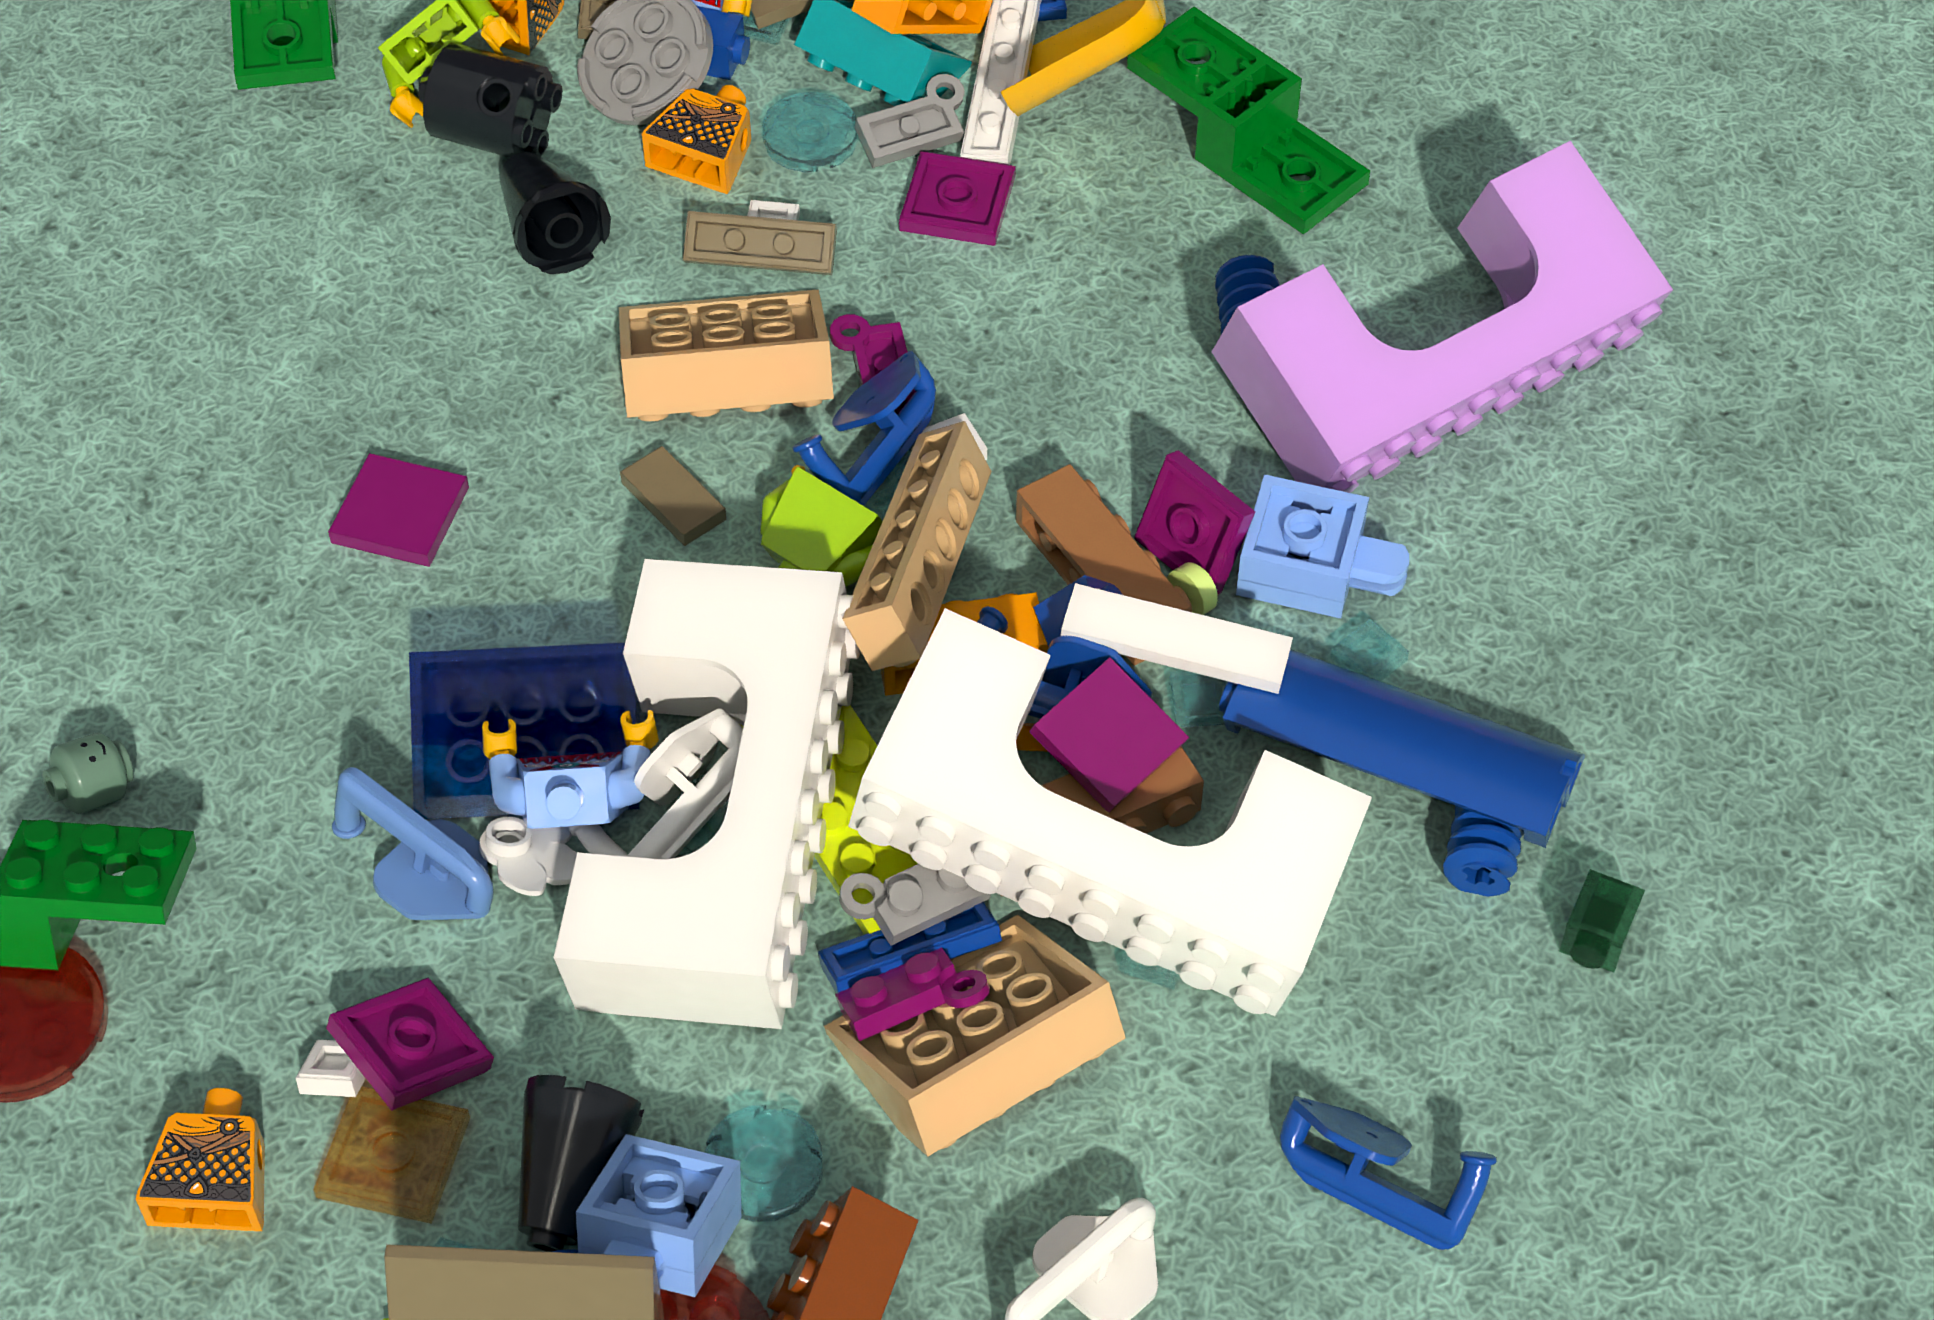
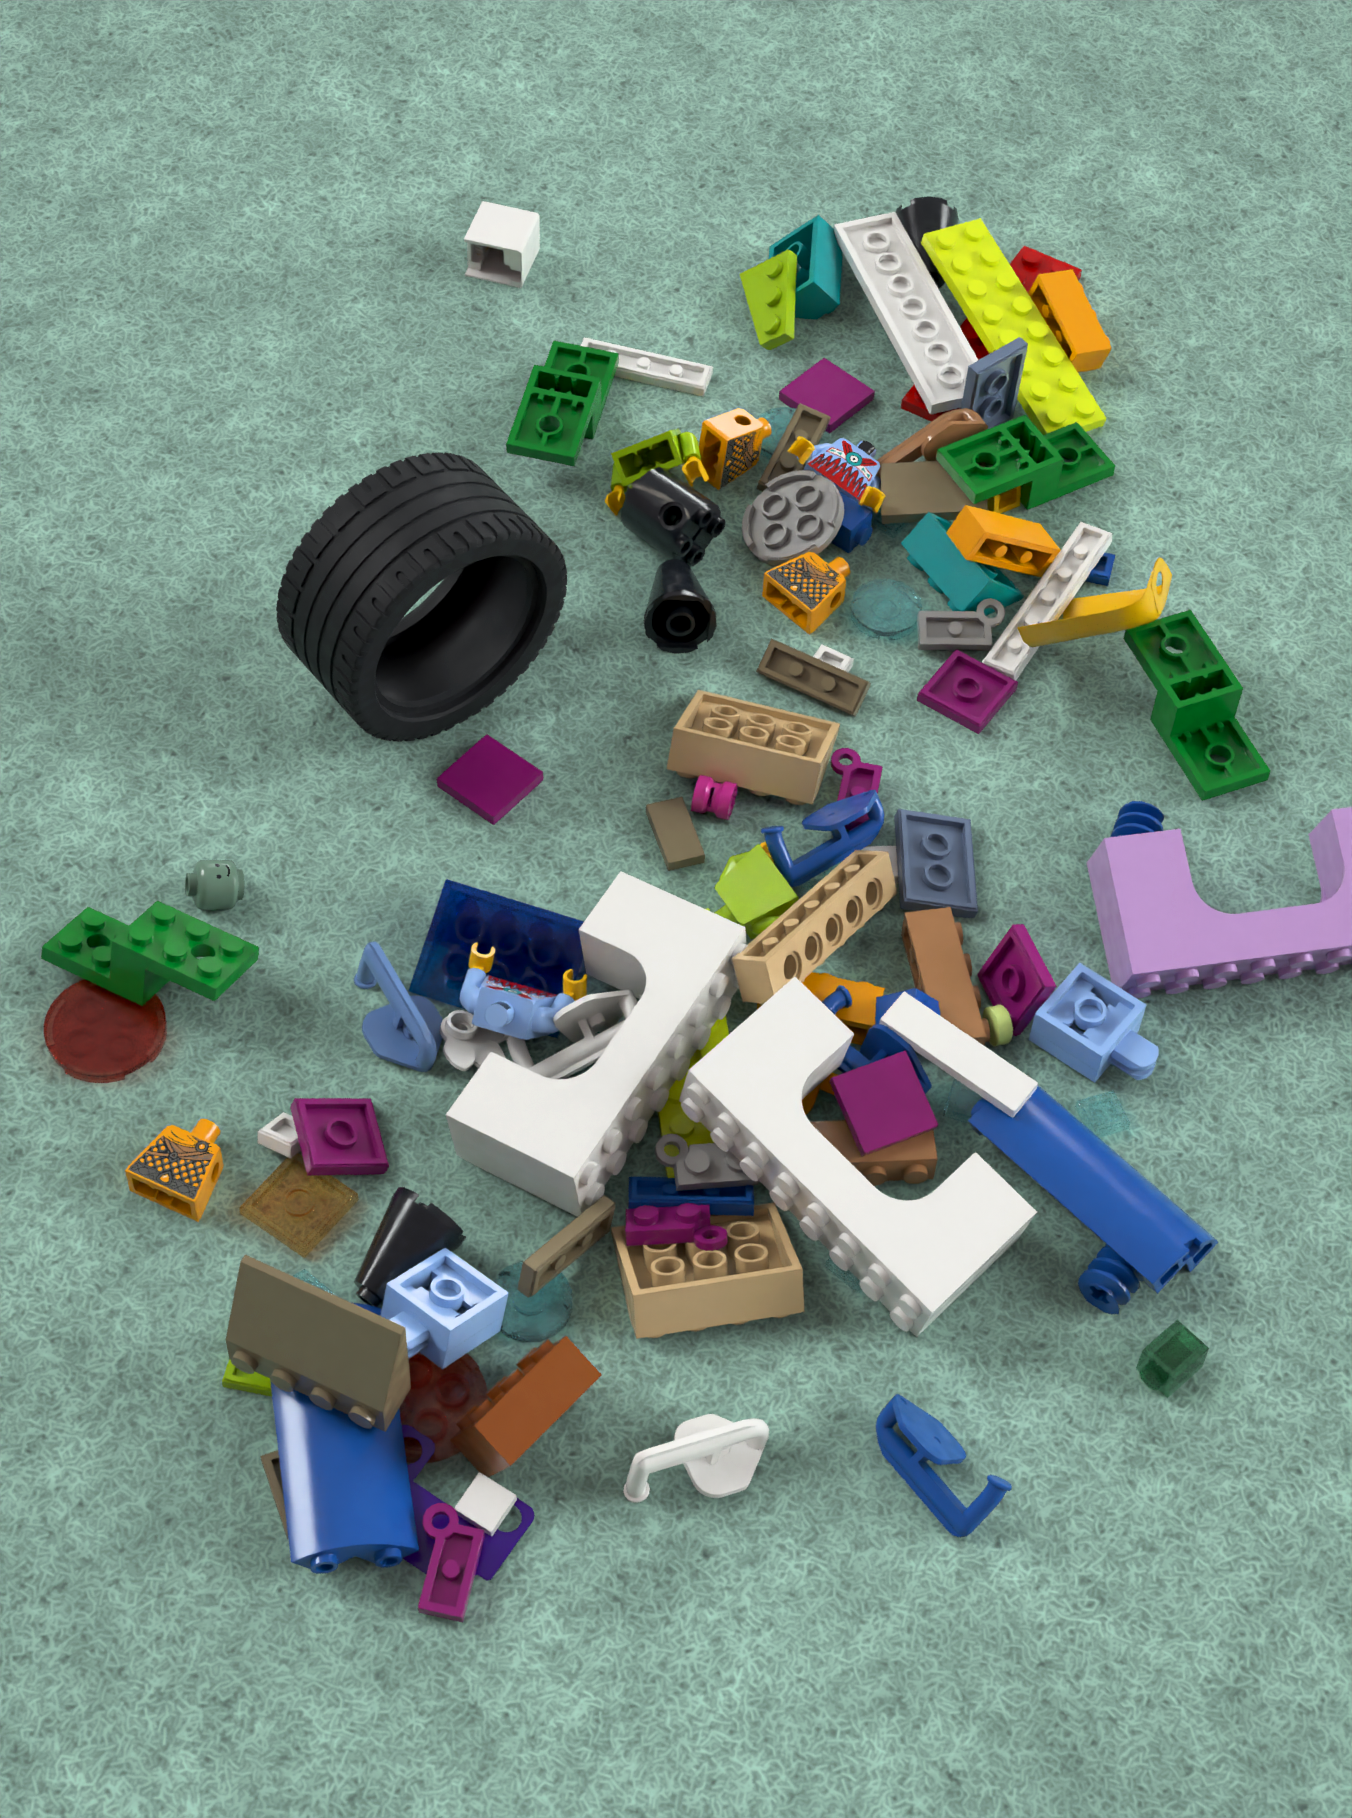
camera: 20 degrees right, 0 degrees up
(219, 294) = (386, 550): none -> black tyre
(716, 430) = (720, 799): none -> dark pink wheel
(783, 1072) = (566, 1246): none -> dark tan tile
(1019, 418) = (935, 863): none -> sand blue tile

